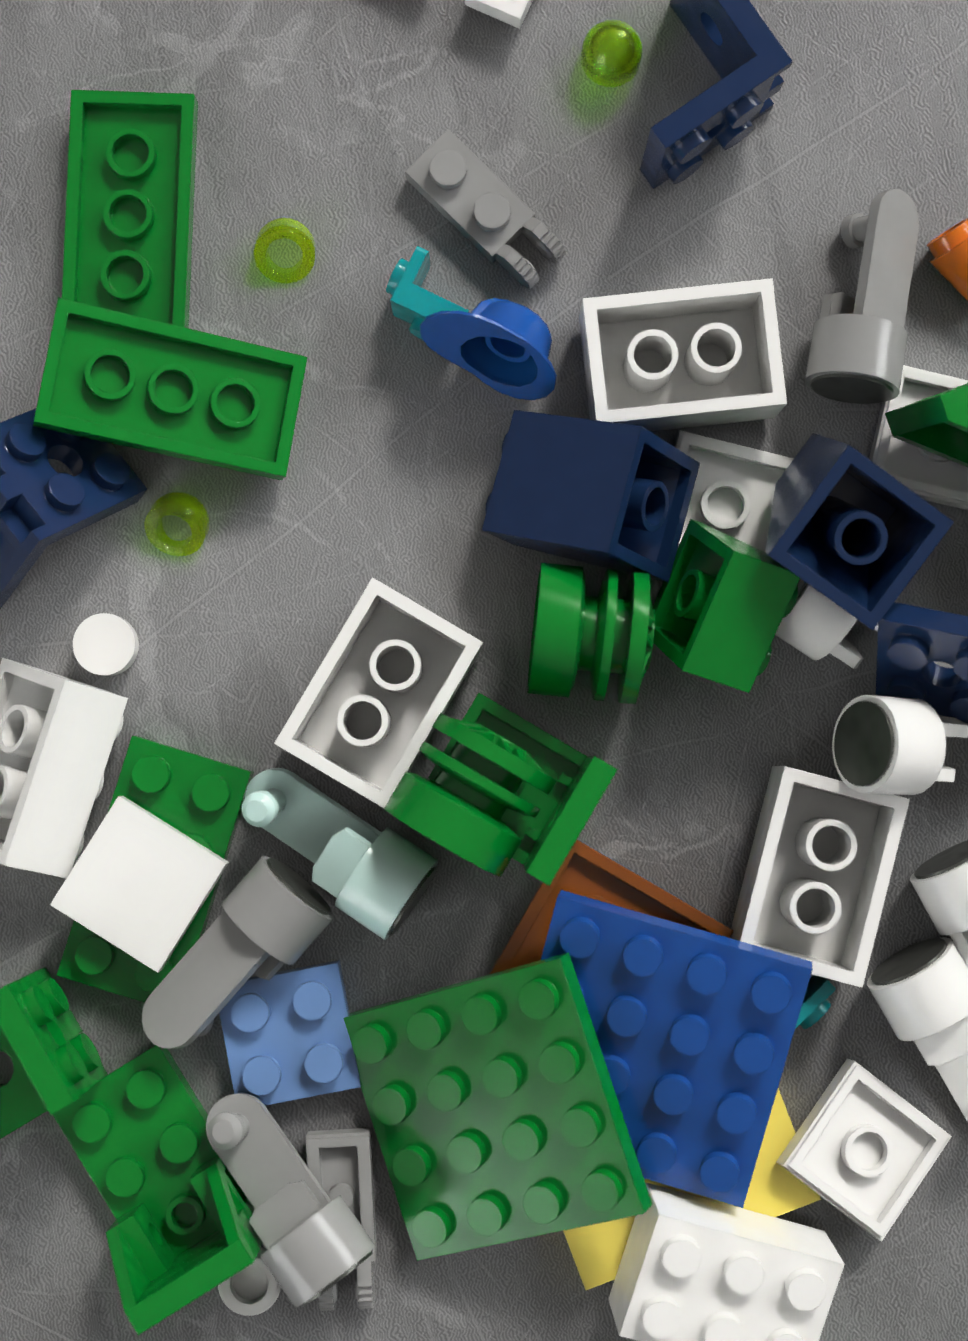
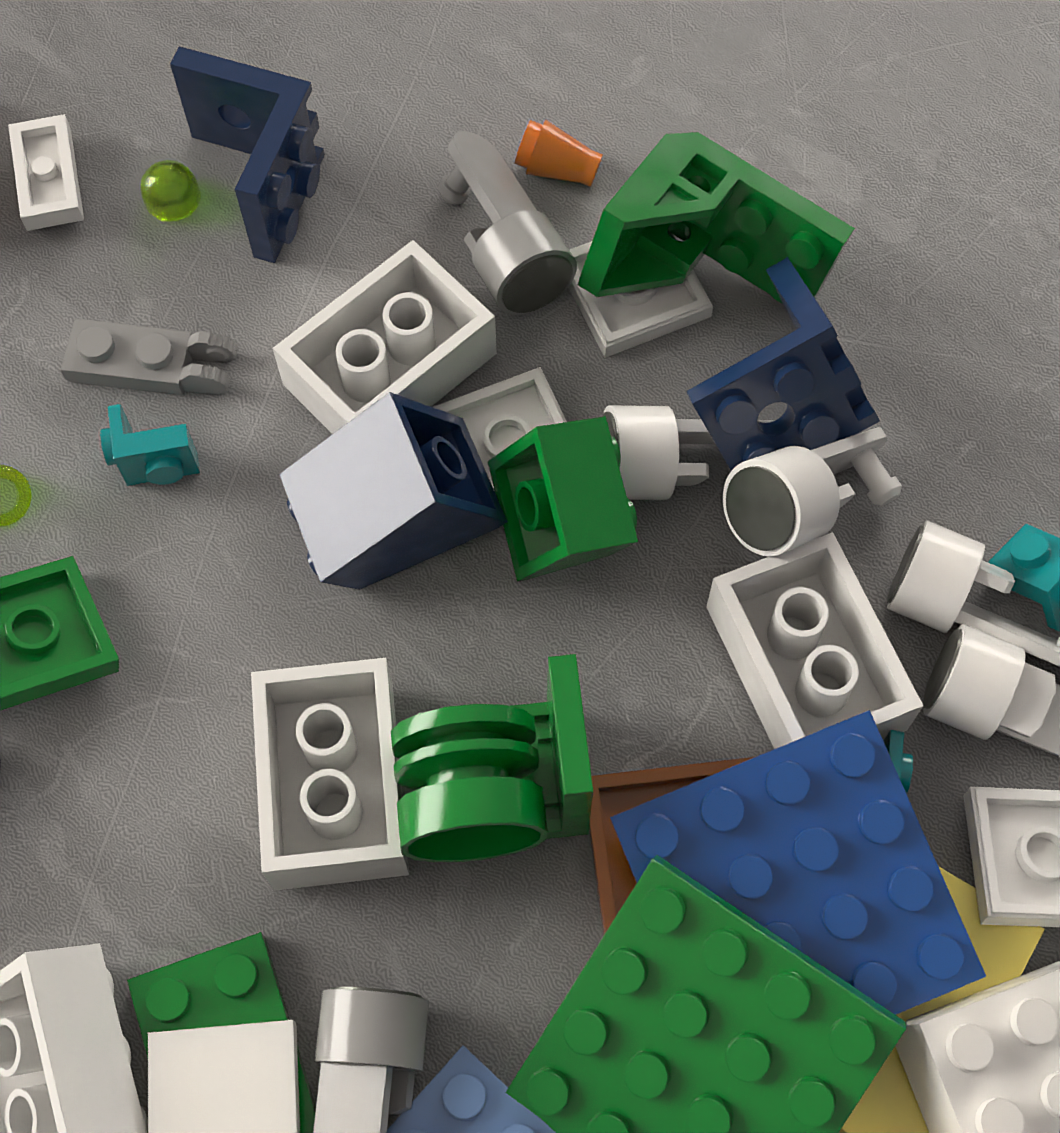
camera: 35 degrees left, 20 degrees down
(105, 644) = (48, 918): white tile -> none
(183, 506) = (47, 748): clear neon green piece -> none
(367, 870) = (438, 935): light aqua piece -> none
(498, 344) = (227, 440): blue piece -> none
(590, 633) = (481, 591): green wheel -> none
(850, 528) = (616, 349): dark blue slope -> none

